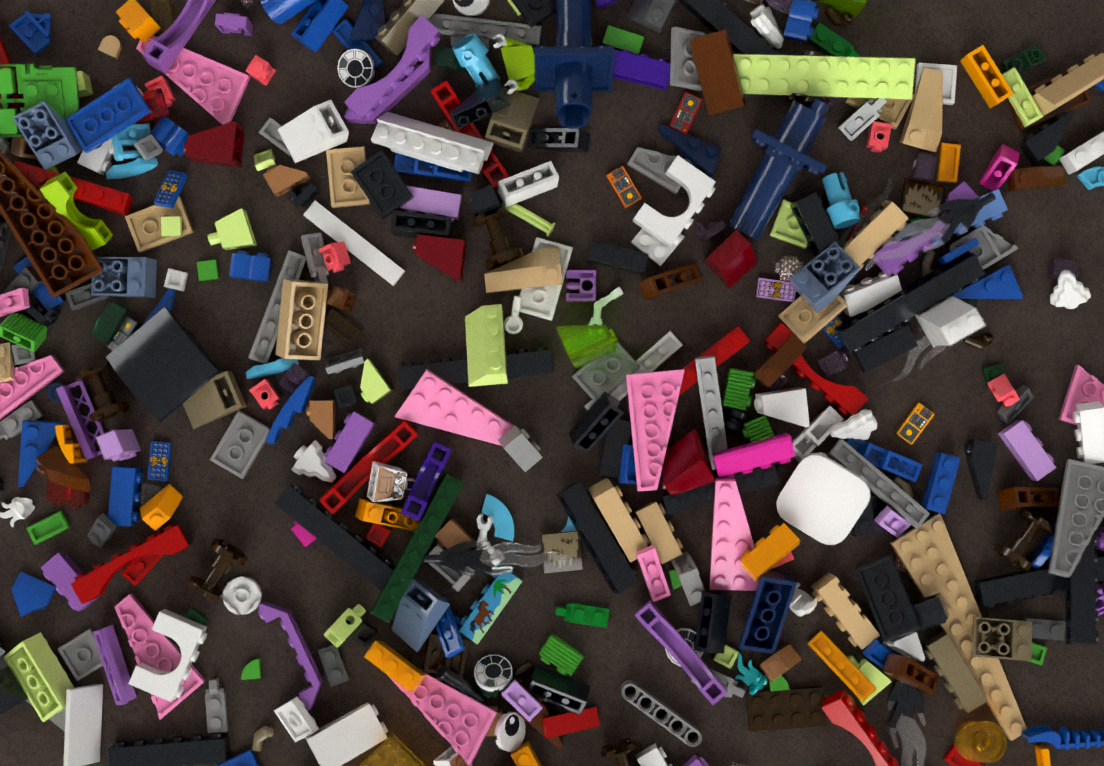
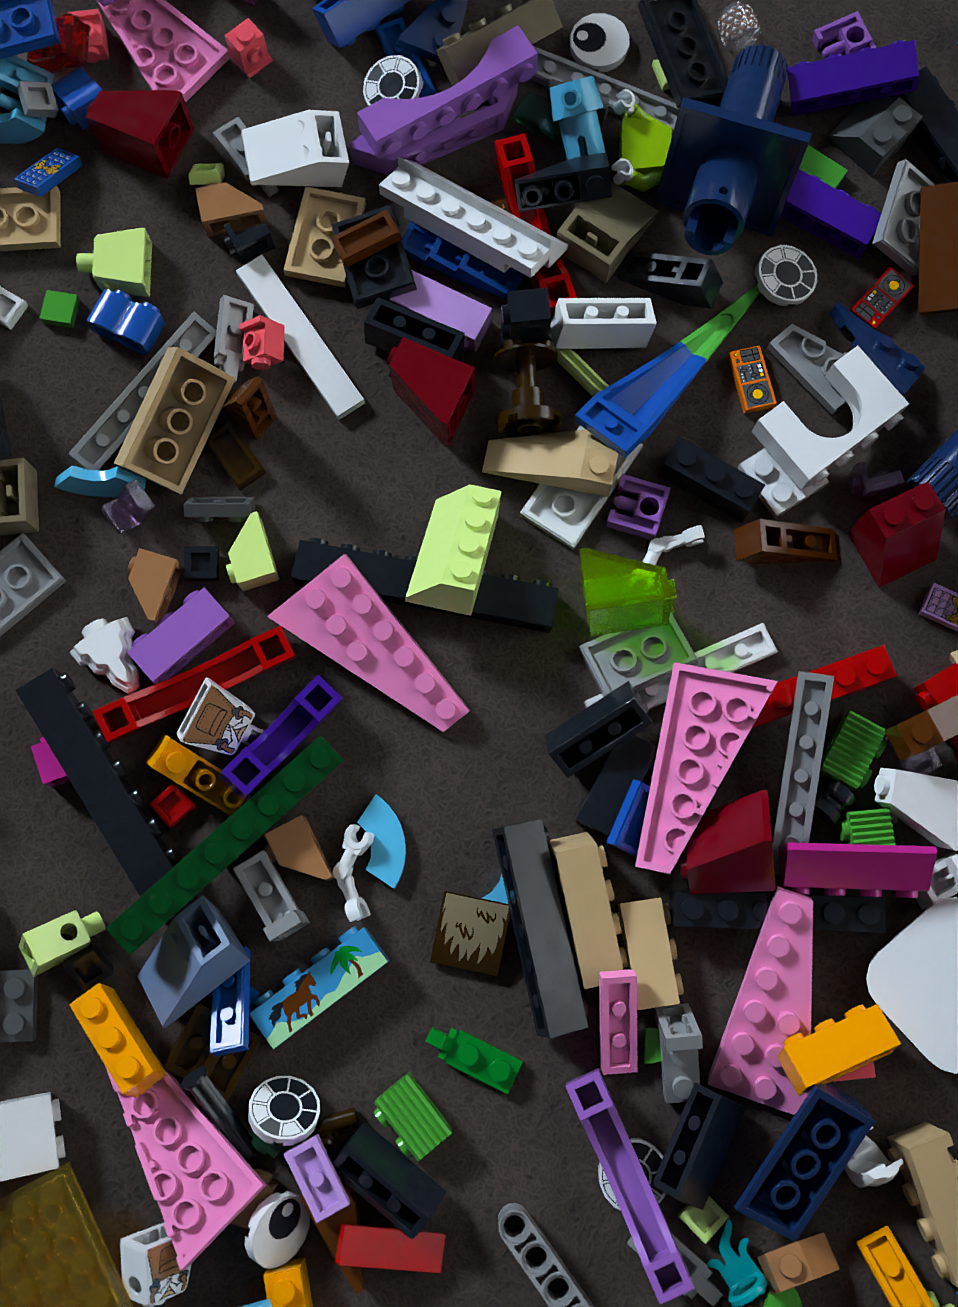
camera: 15 degrees right, 10 degrees down
(171, 226) = (27, 223): yellowish green tile -> none
(273, 396) = (83, 528): coral brick -> none
(295, 403) = (100, 558): blue slope -> none
(374, 176) = (366, 238): none -> reddish brown tile
(462, 559) = (299, 891): piece -> none
(513, 323) = (510, 532): white plate -> none
(520, 448) = (457, 732): light grey brick -> none
(561, 229) = (638, 402): none -> blue plate
(625, 116) = (786, 275): none -> tile

